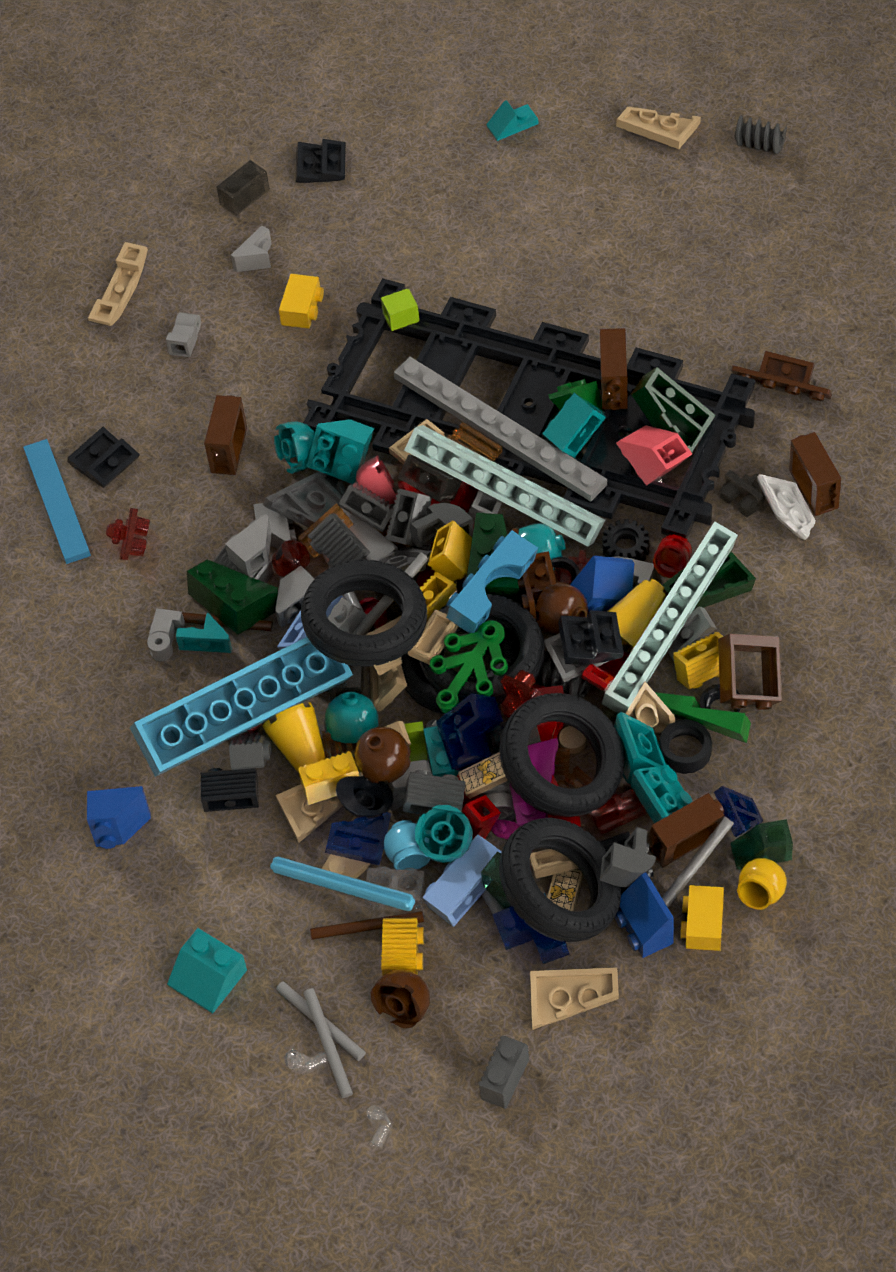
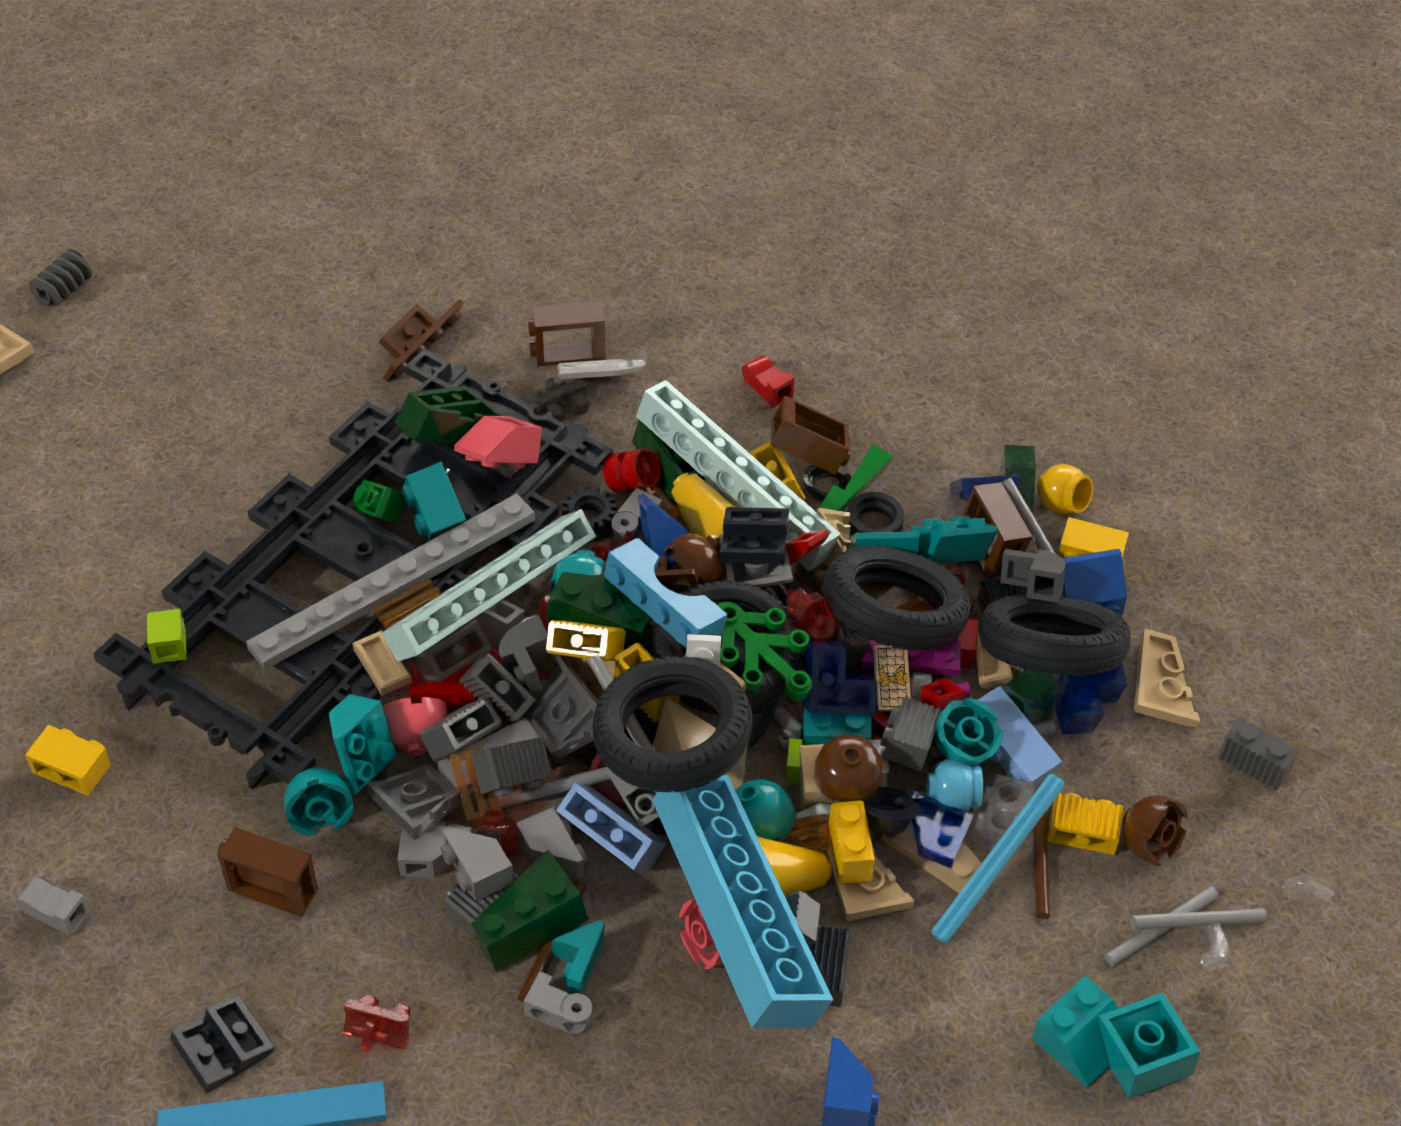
camera: 85 degrees left, 5 degrees down
(196, 1010) = (1147, 1045): none -> teal slope
(438, 619) = (704, 647): none -> white plate
(613, 368) = (370, 462): reddish brown window -> none
(825, 635) = (768, 380): none -> red leg

